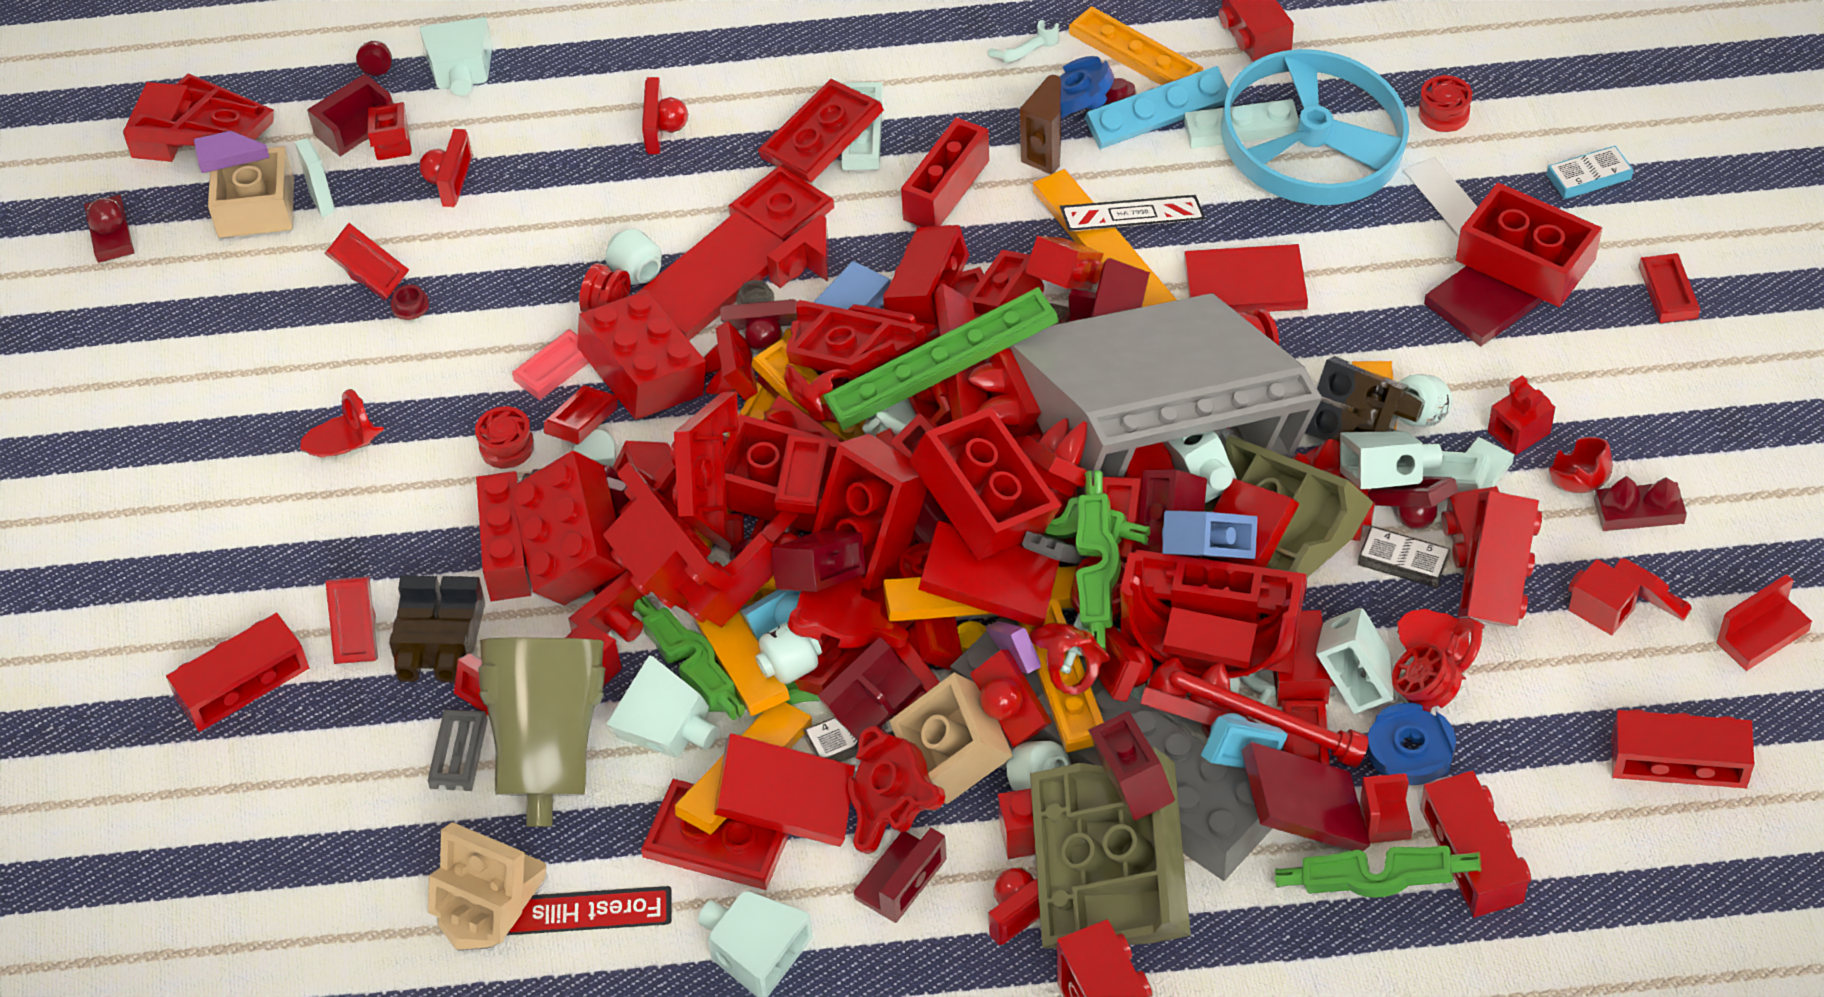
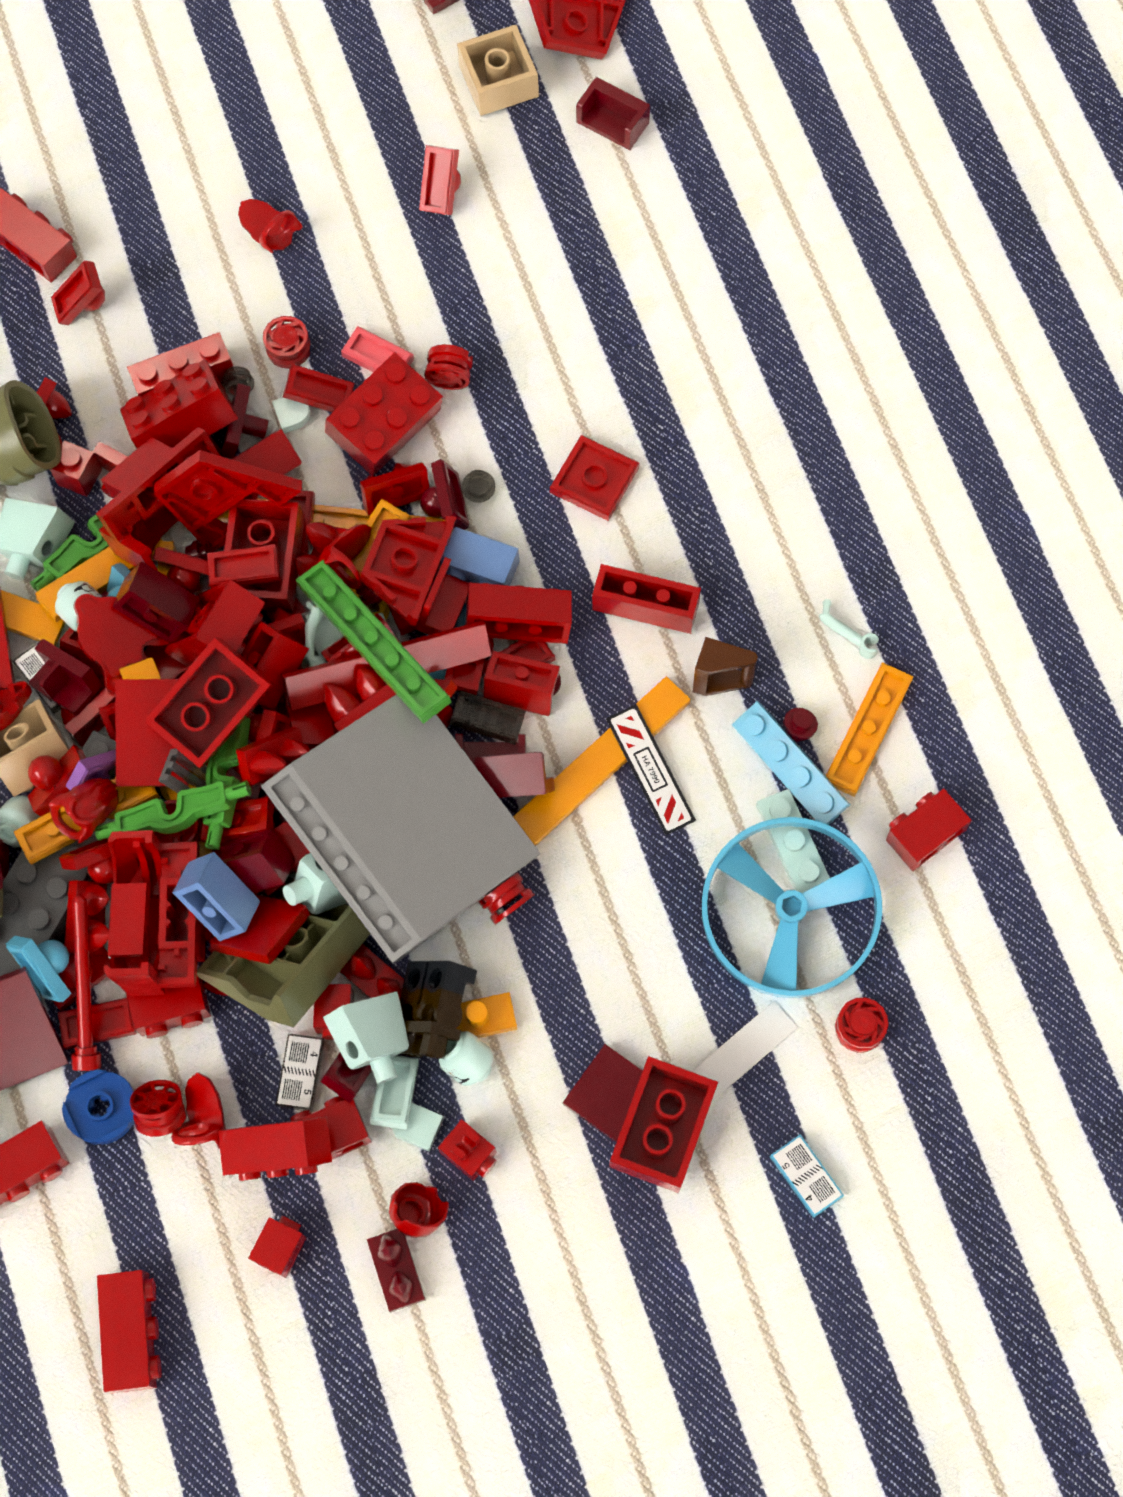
camera: 75 degrees right, 20 degrees up
(227, 150) = (515, 32): medium lavender tile -> none
(315, 177) = (519, 109): light aqua tile -> none
(374, 58) = (686, 107): dark red plate -> none
(389, 131) = (596, 144): red slope -> none
(409, 302) = (416, 228): dark red plate -> none
(435, 625) = (88, 353): dark brown hips -> none
(448, 167) = (569, 206): red tile -> none
(458, 53) = (705, 169): light aqua torso -> none
(634, 253) = (497, 377): light aqua head -> none
(660, 115) = (671, 347): red tile -> none
(712, 273) = (499, 445): red tile -> none
(802, 250) = (540, 512): red slope -> none
(821, 130) = (681, 483): red tile -> none
(865, 149) = (703, 516): light aqua plate -> none
(1065, 263) = (552, 722): red brick -> none
(1085, 84) = (801, 699): blue plate -> none
(1249, 277) = (593, 883): red tile -> none
(1346, 649) = (163, 1044): light aqua torso -> none
(1386, 808) = (28, 1096): red panel -> none
(1654, 589) = (295, 1286): red tile -> none
(1669, 288) = (671, 1268): red tile -> none
(1762, 624) = (273, 1393): red panel -> none

